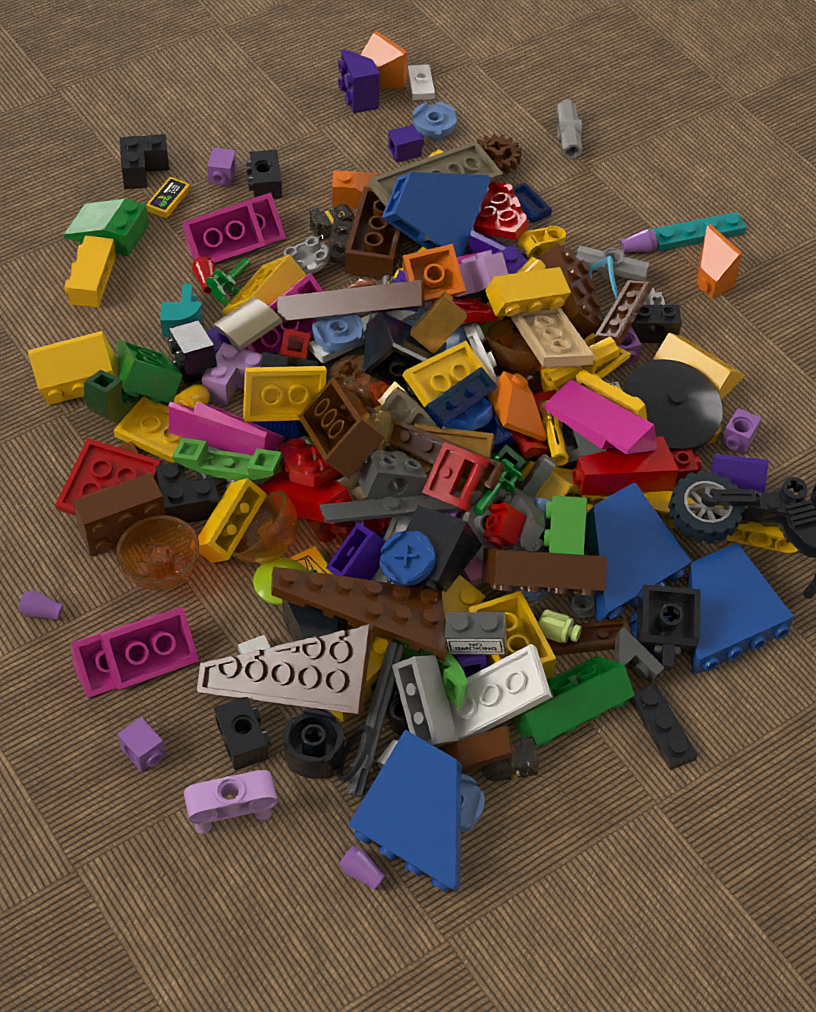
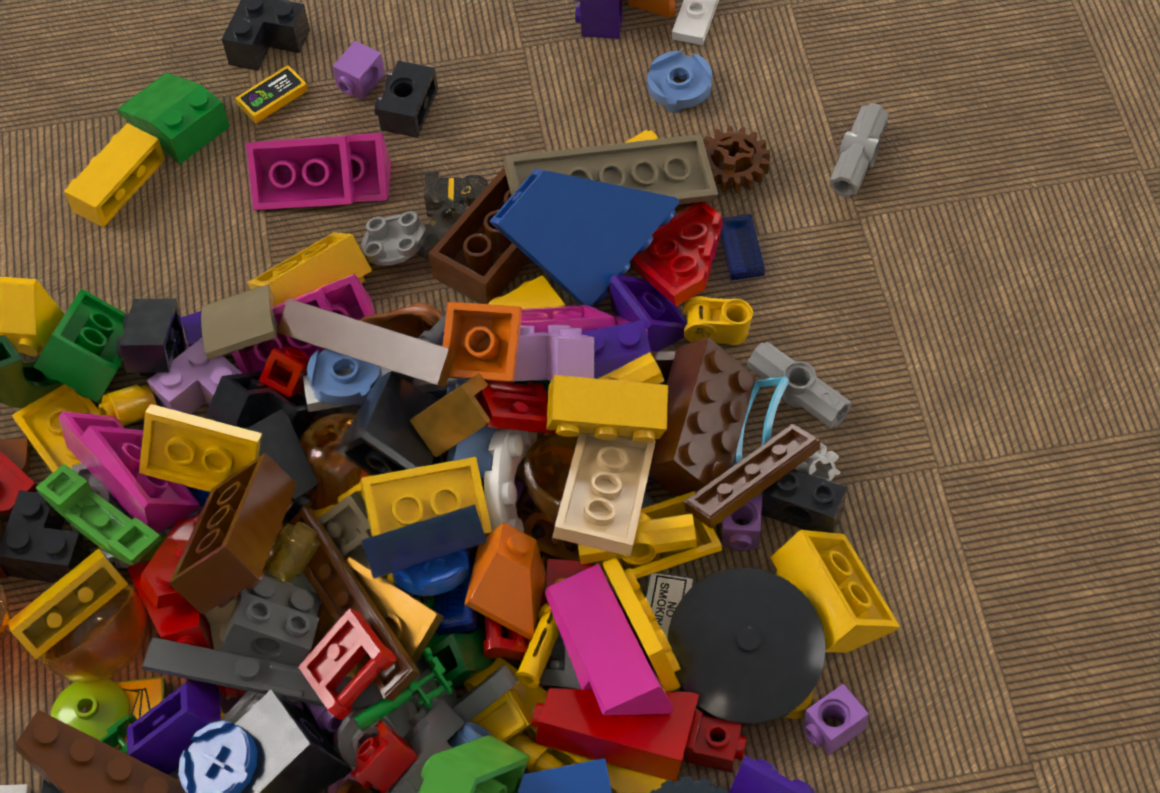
camera: 30 degrees right, 5 degrees up
(180, 313) = (188, 278): teal brick -> none
(202, 269) = (252, 220): red cone -> none
(226, 281) = (275, 241): green piece -> none
(348, 187) = (507, 139): orange slope -> none
(405, 143) = (618, 105): dark purple brick -> none
(640, 242) = (860, 361): medium lavender cone -> none
(694, 231) = (960, 370): teal plate -> none
(717, 263) = (945, 438): slope -> none

